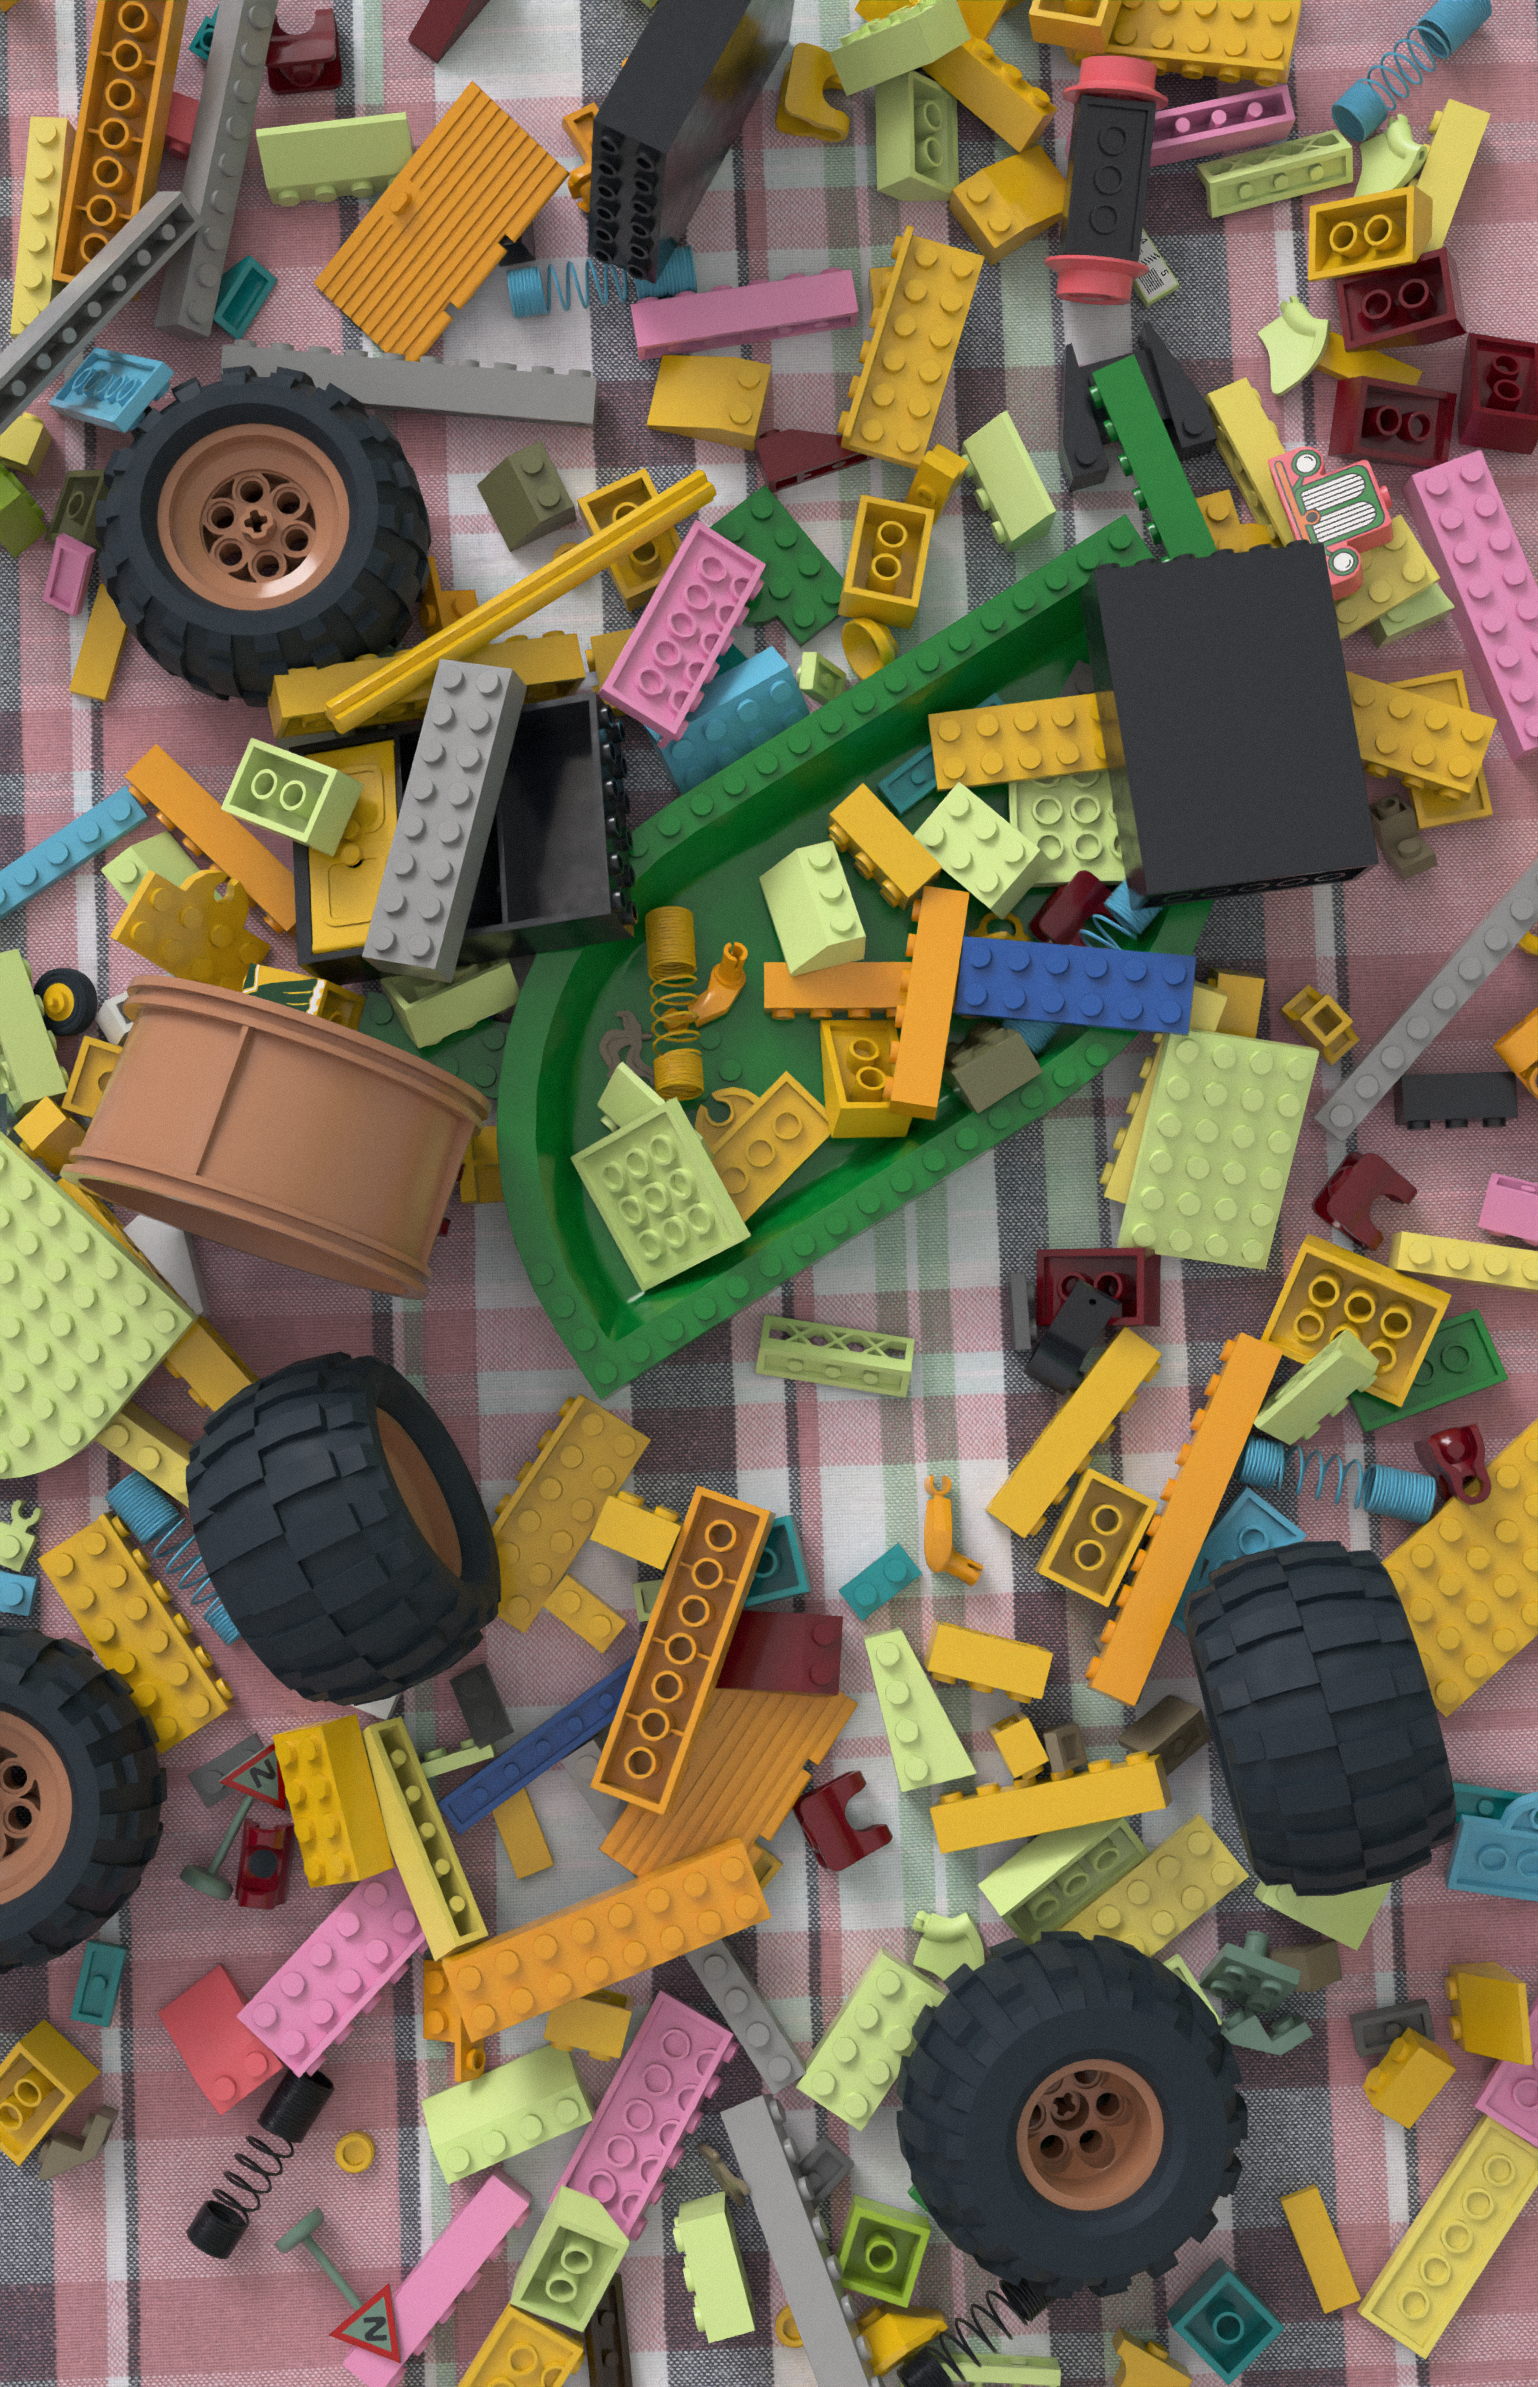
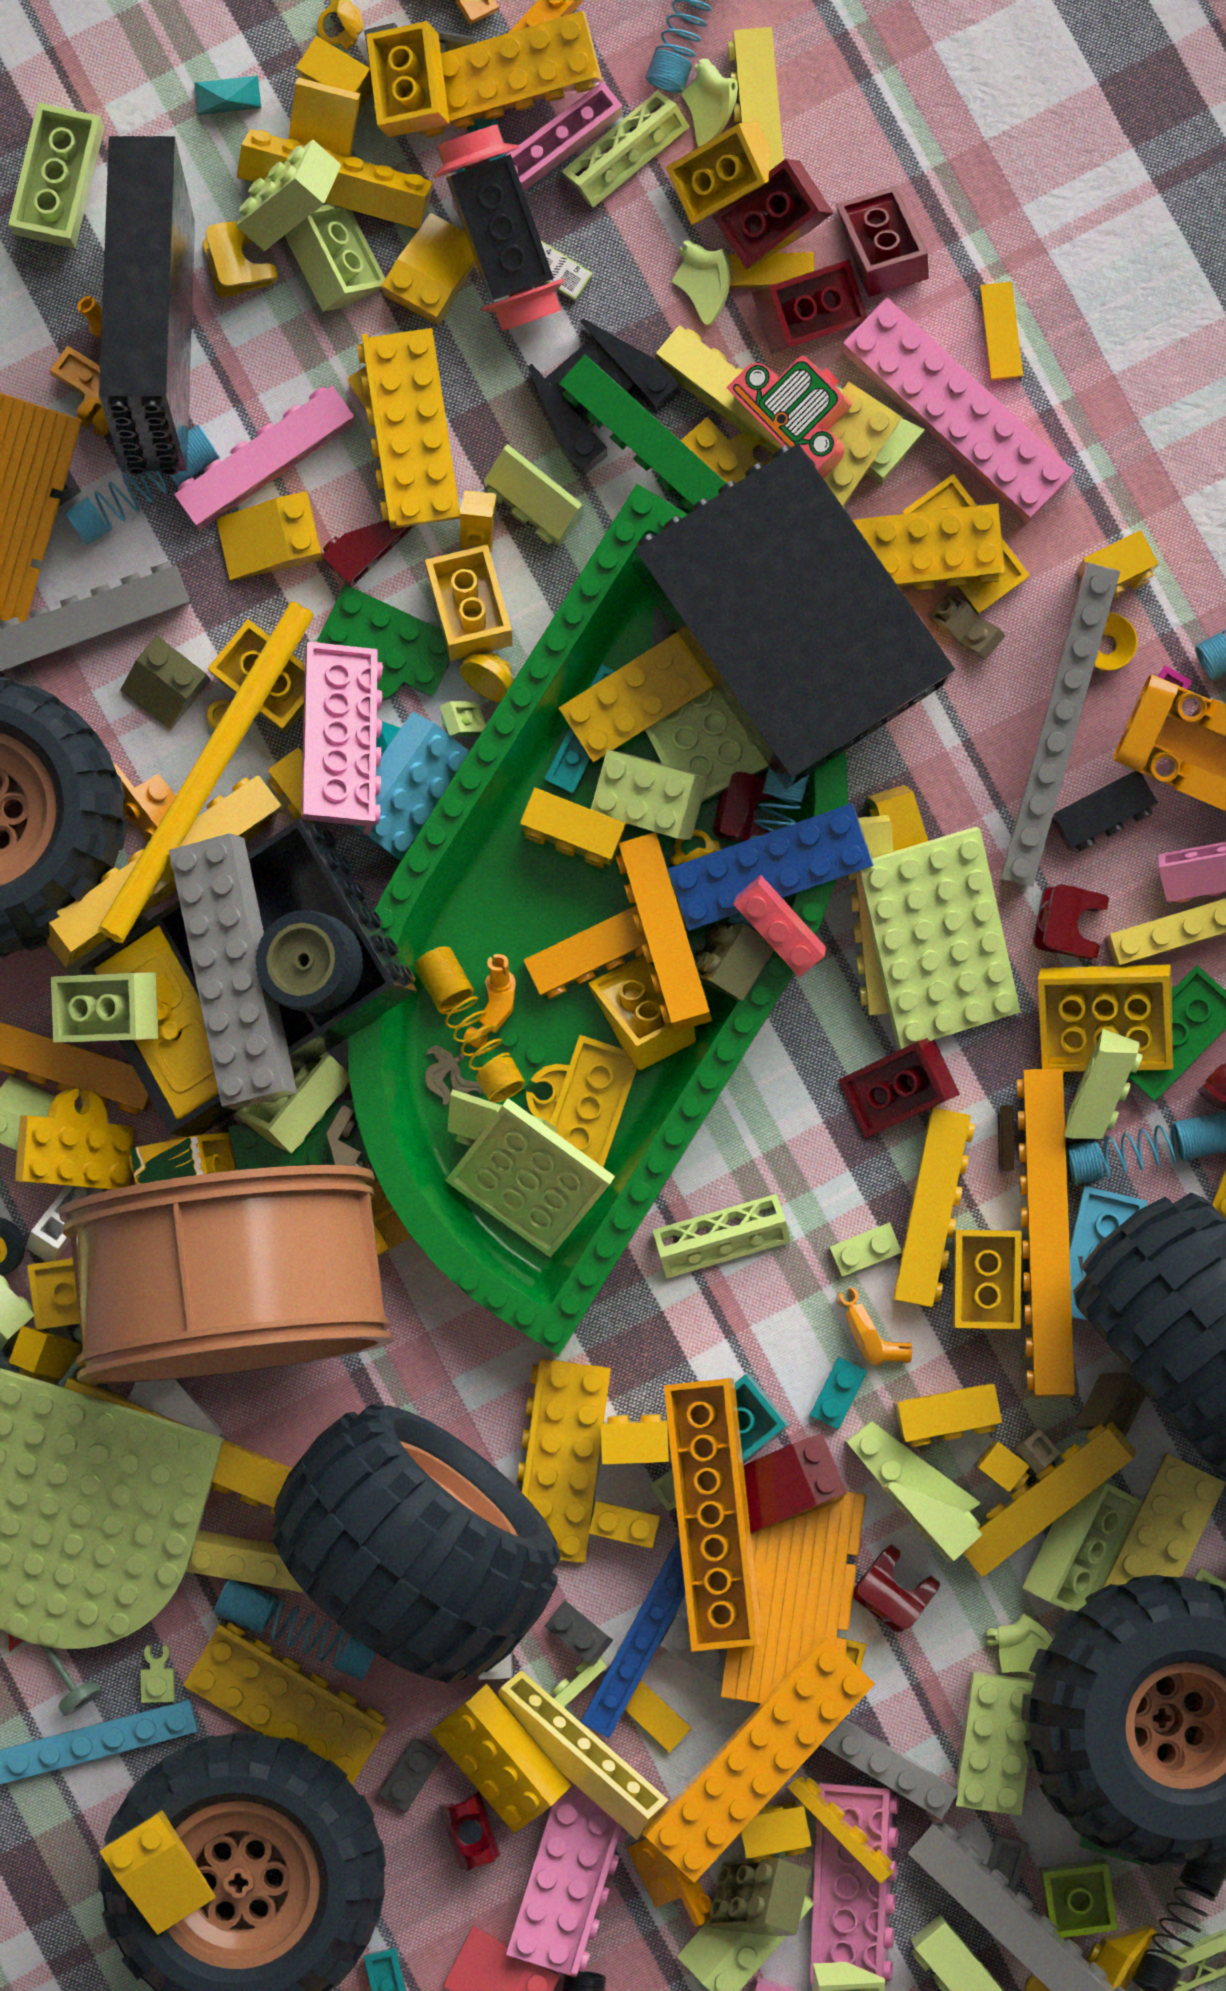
camera: 15 degrees left, 0 degrees up
(259, 1779) = (434, 1770): sand green piece -> none
(485, 1046) = (343, 1126): none -> dark tan slope
(530, 845) = (309, 961): none -> wheel
(538, 2086) = (759, 1897): none -> olive slope
(667, 2068) = (850, 1837): none -> yellow plate
(726, 2180) = (938, 1903): dark tan piece -> none
(813, 910) = (541, 901): yellowish green slope -> none
(925, 1779) = (940, 1523): none -> yellowish green slope
(981, 1443) = (865, 1249): none -> yellowish green plate
(1020, 1295) = (855, 1146): dark grey plate -> none
(1056, 1051) = (780, 926): none -> coral brick
(1070, 1338) = (895, 1136): black door -> none
(1186, 1396) = (1005, 1138): none -> dark brown tile
(1321, 1023) = (973, 802): yellow brick -> none

